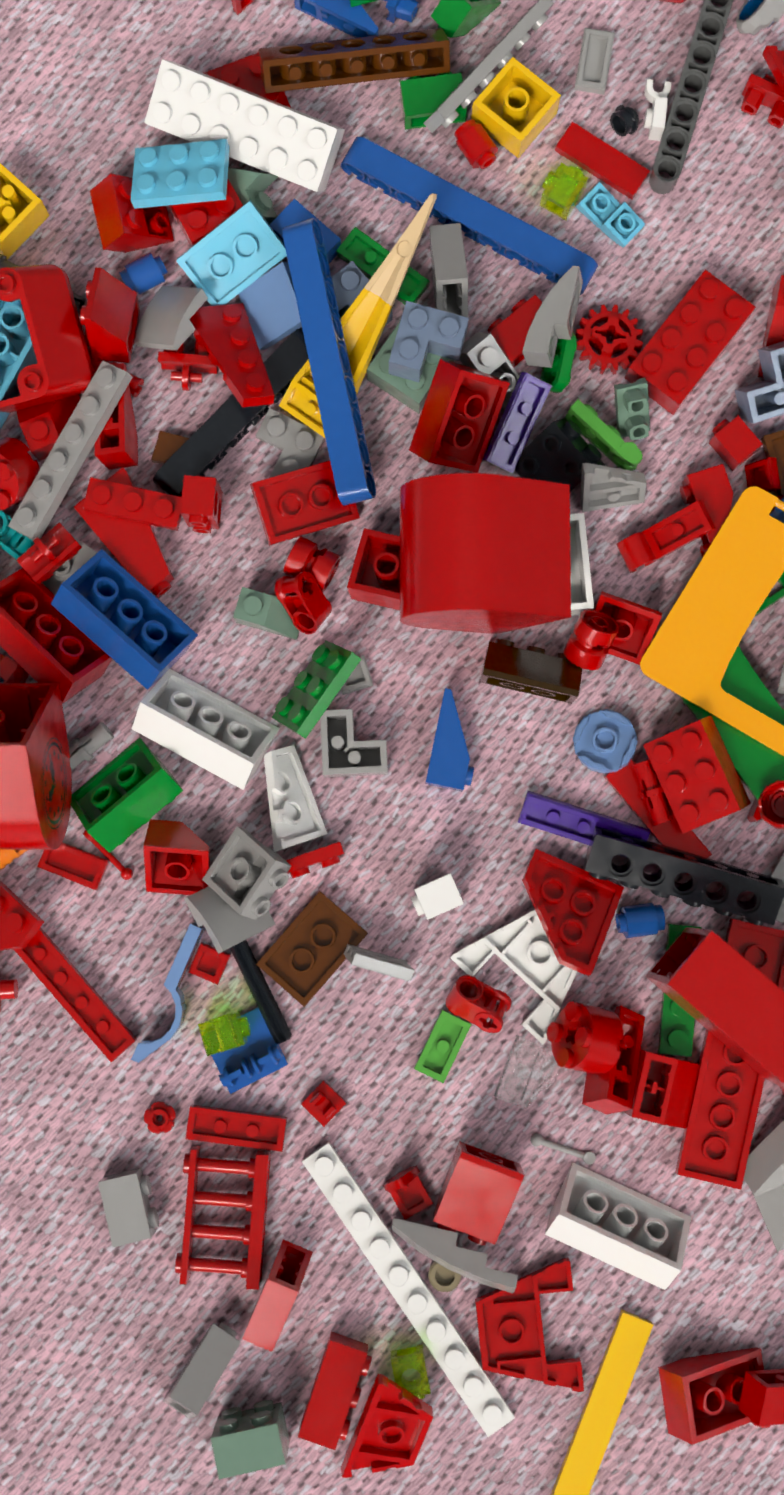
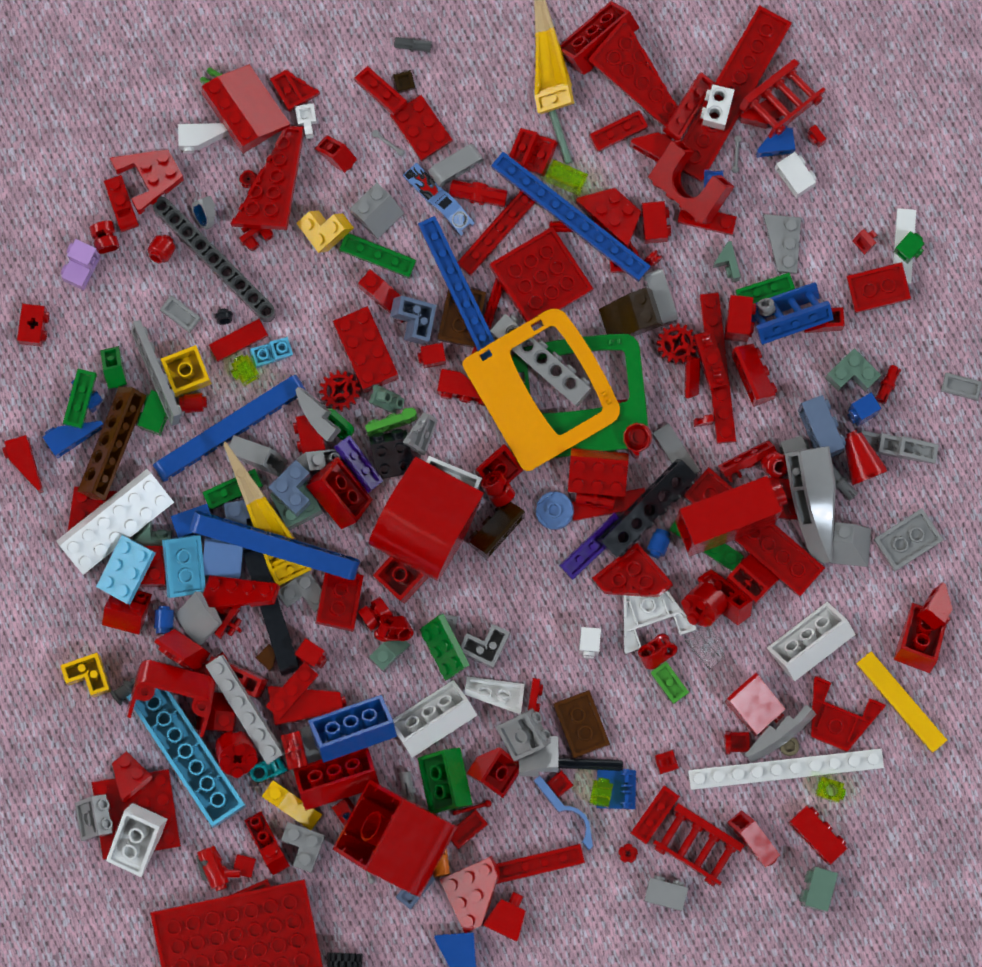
camera: 65 degrees left, 5 degrees down
(203, 1370) = (772, 899): light grey slope -> none
(378, 962) = (608, 691): tile -> none
(388, 1429) = (852, 816): red wing -> none
(449, 755) = (516, 595): blue slope -> none
(588, 1157) = (768, 638): light grey hinge -> none
(656, 117) = (232, 299): white plate -> none
(666, 536) = (463, 419): red plate -> none
(763, 474) = (458, 350): red tile -> none

